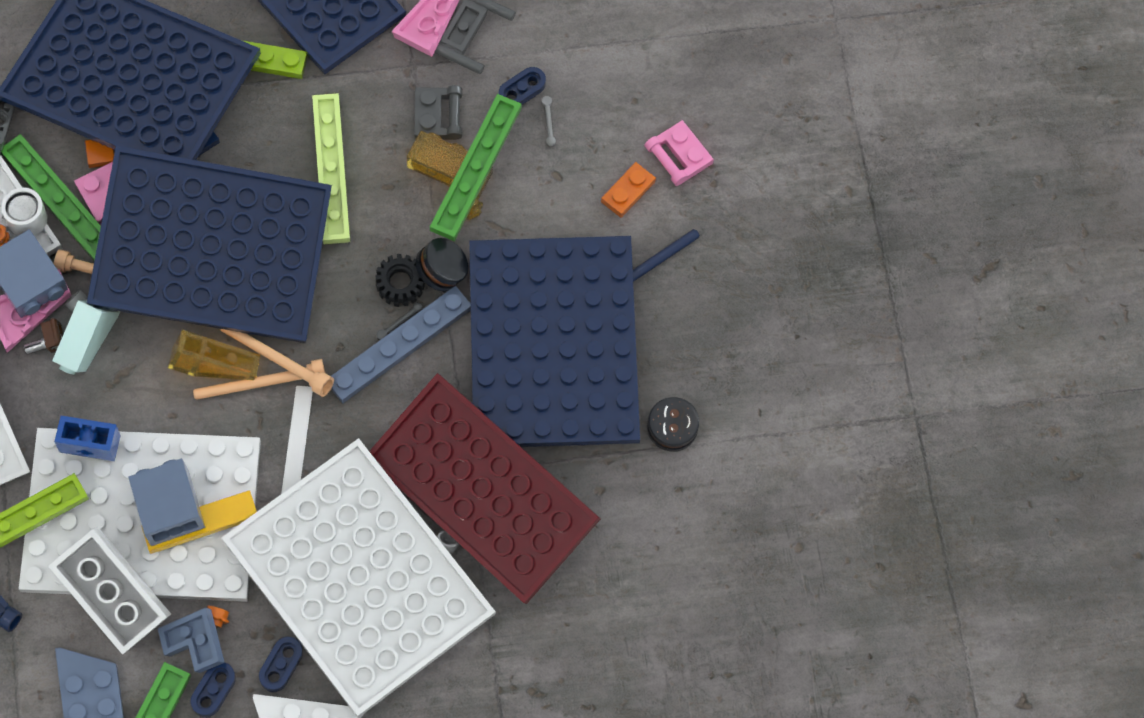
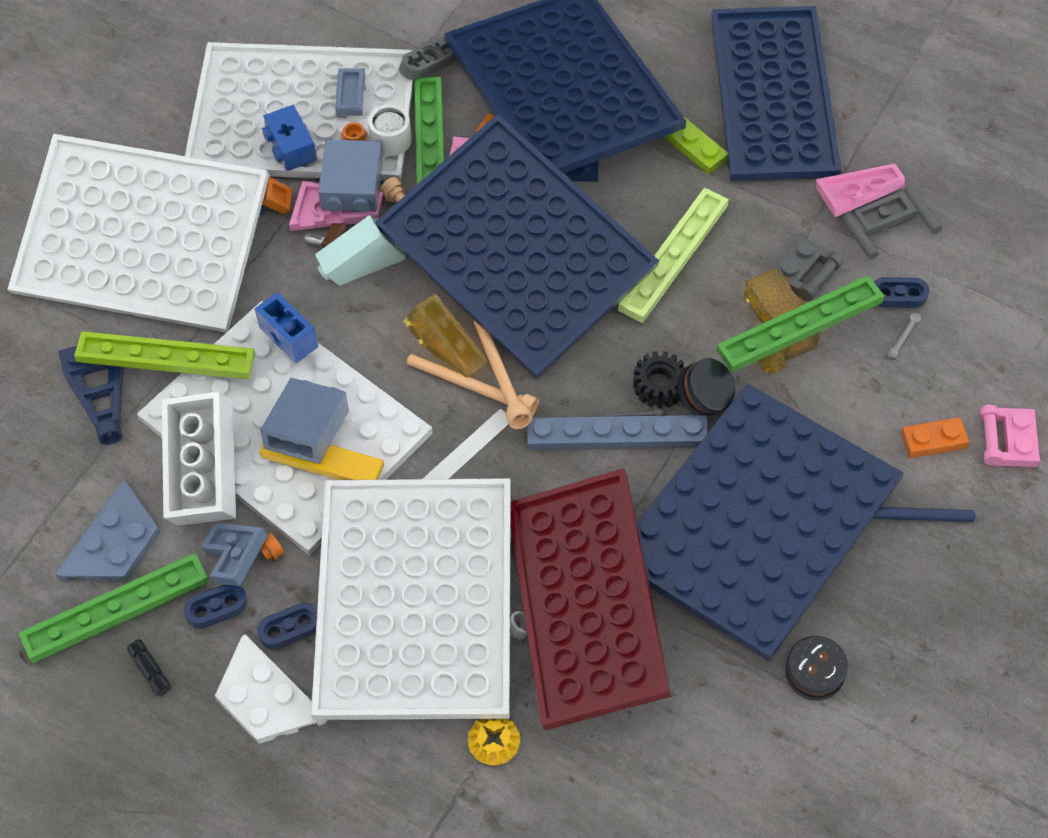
camera: 45 degrees right, 10 degrees down
(501, 646) = (492, 753): none -> yellow gear

